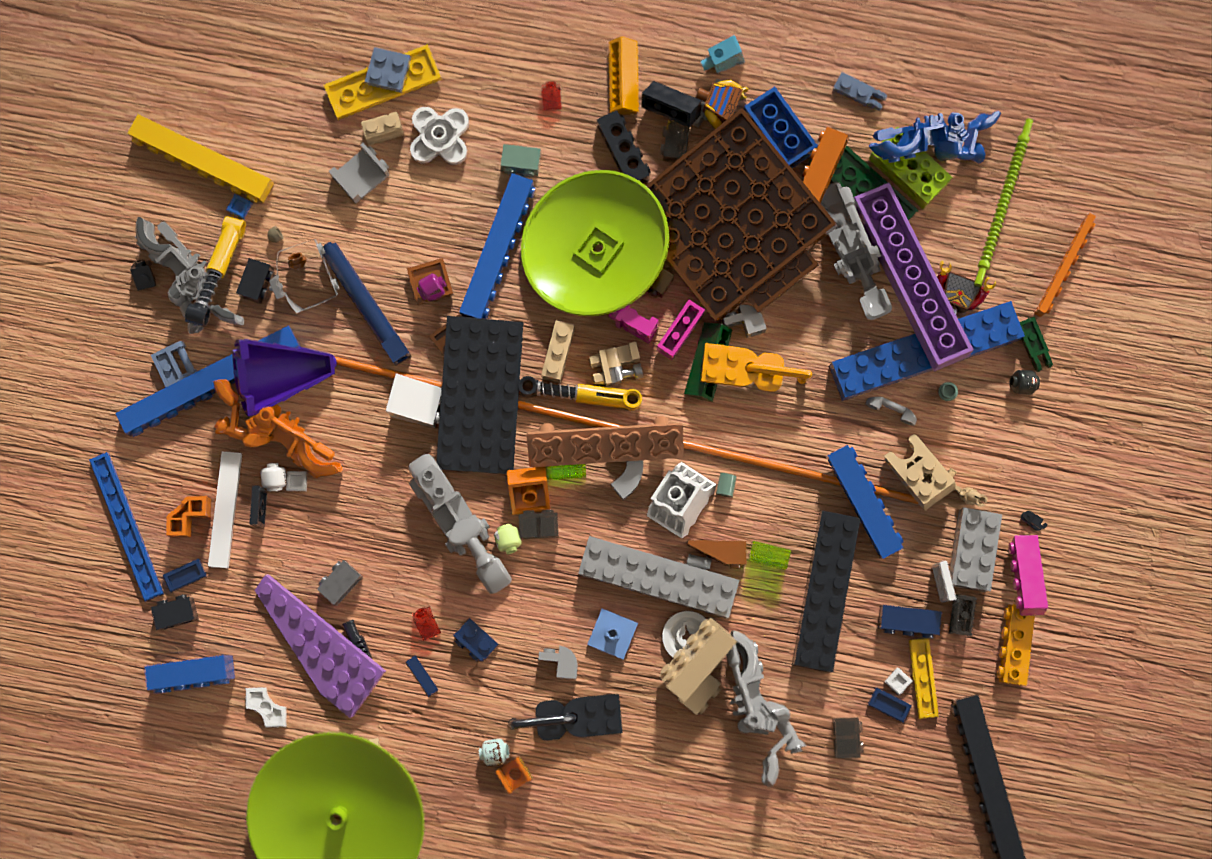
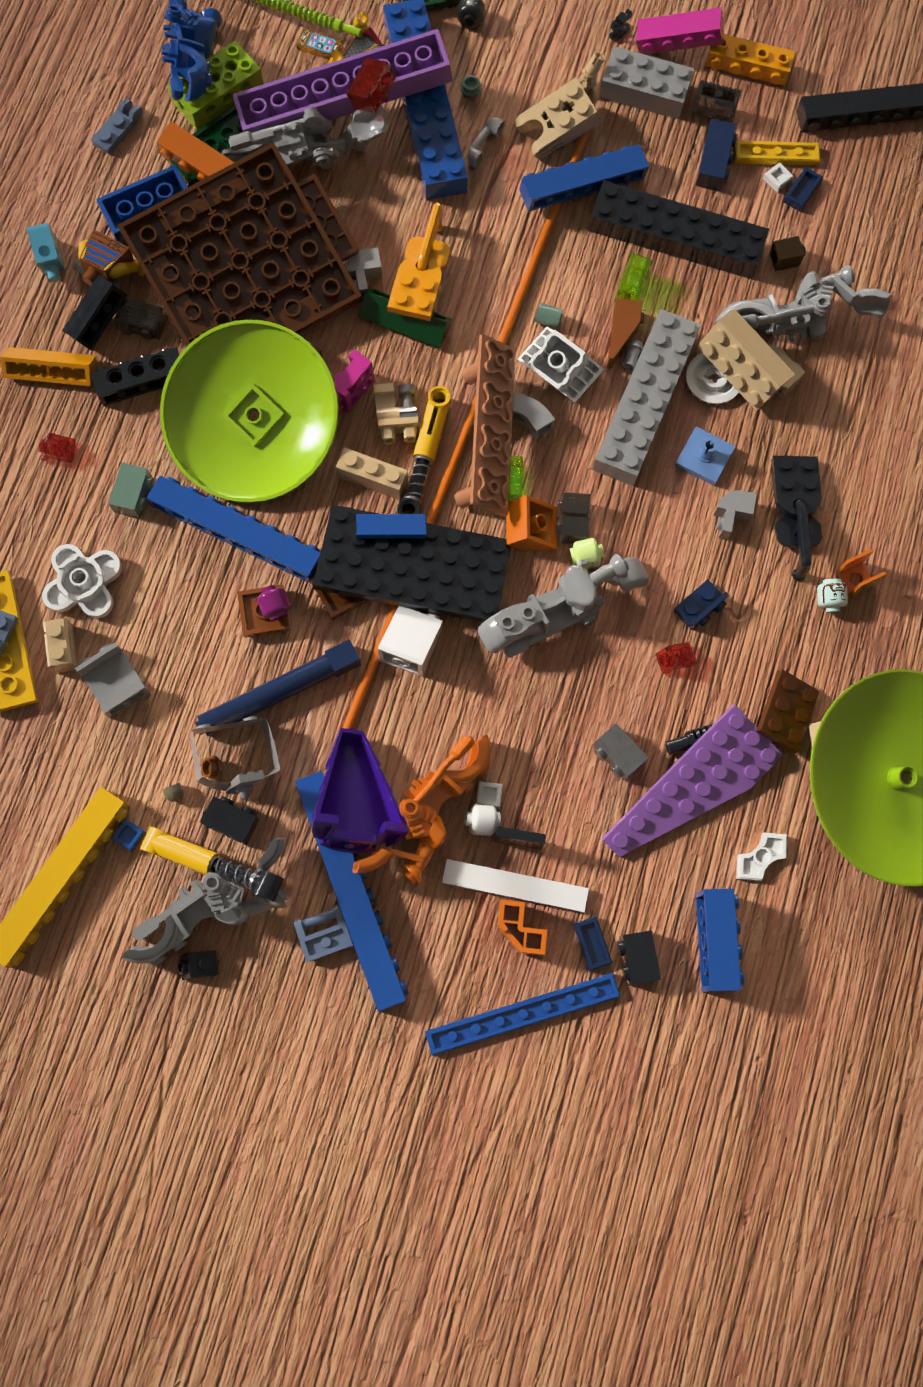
camera: 85 degrees left, 5 degrees down
(386, 719) = (787, 711): none -> reddish brown plate
(422, 676) = (737, 670): dark blue piece -> none
(506, 372) = (390, 526): none -> blue tile
(680, 330) = (365, 337): dark pink brick -> none
(817, 693) = (787, 253): none -> dark brown brick
(847, 737) = (842, 227): clear smoke piece -> none
(902, 298) = (371, 85): none -> clear red brick
(943, 581) = (679, 111): white tile -> none
(970, 251) = (318, 43): none -> tile

